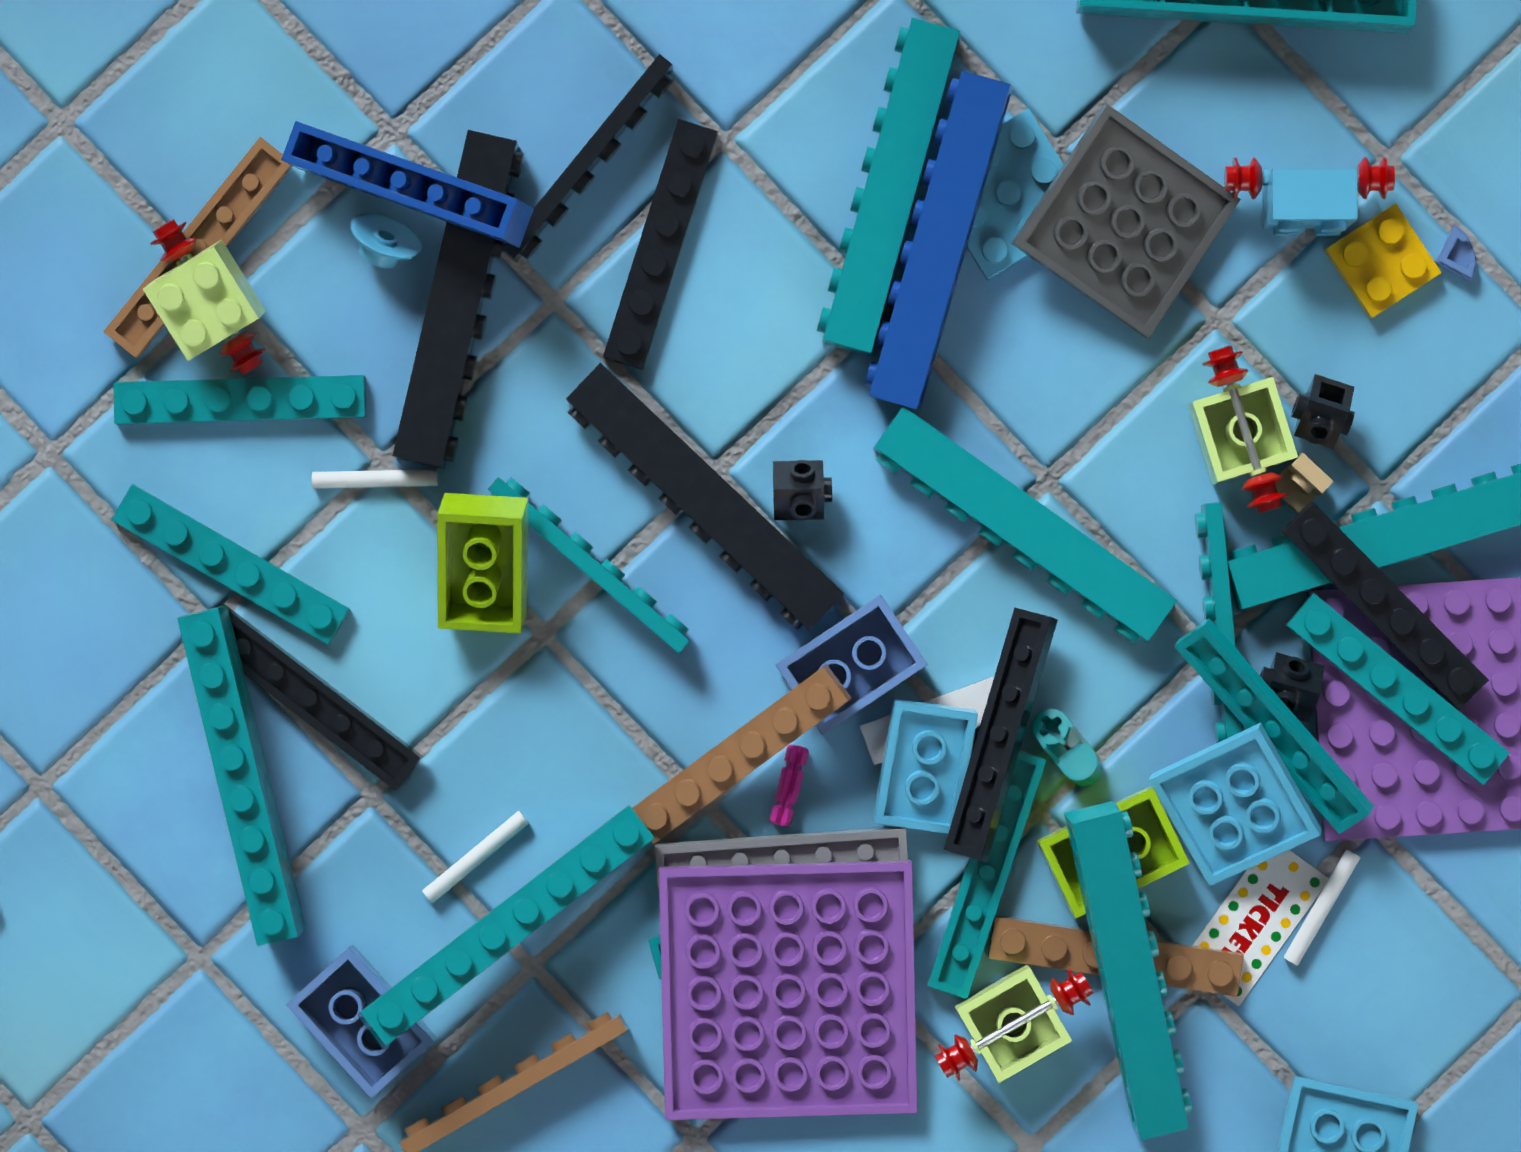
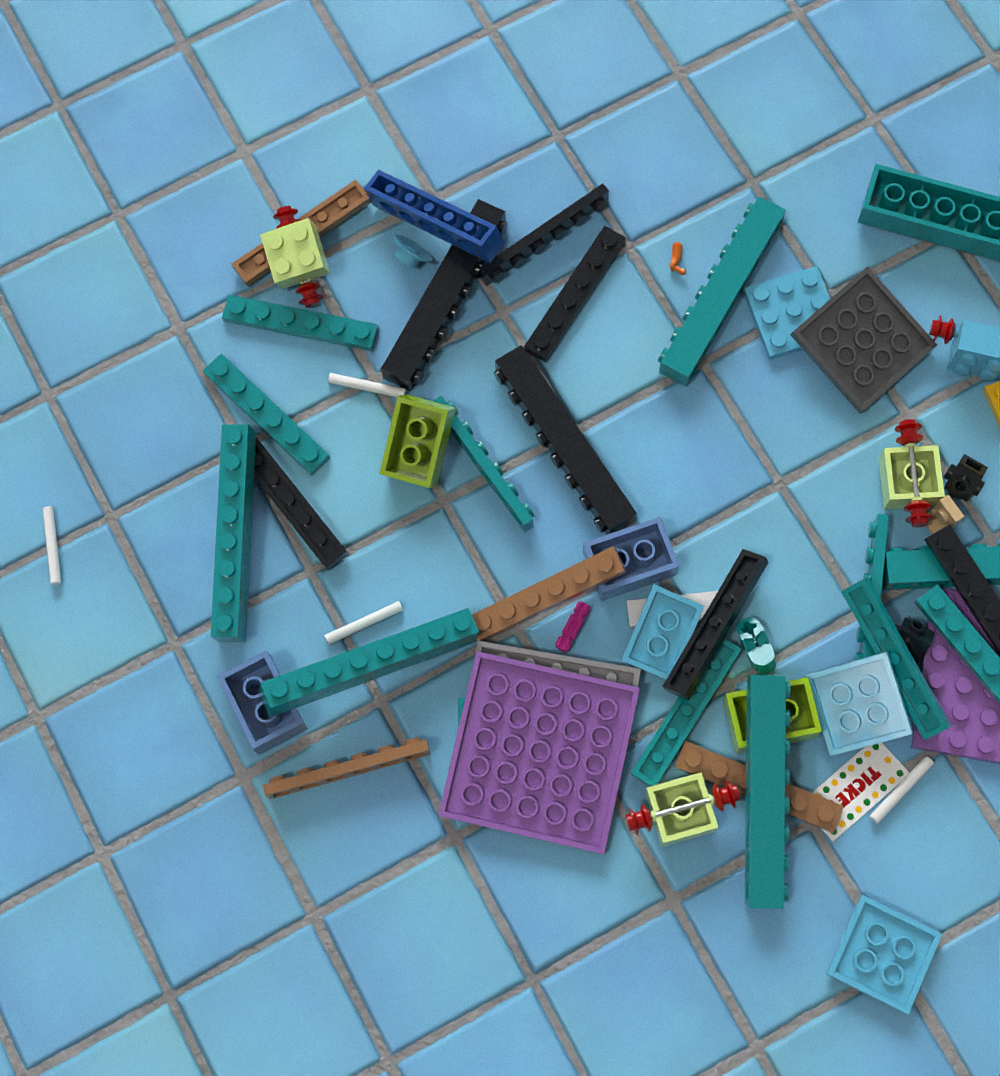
camera: 20 degrees right, 15 degrees down
(800, 490) = (624, 448): black brick -> none
(803, 145) = (676, 257): none -> orange piece
(940, 239) = (746, 323): blue brick -> none
(1024, 525) = (760, 504): teal brick -> none

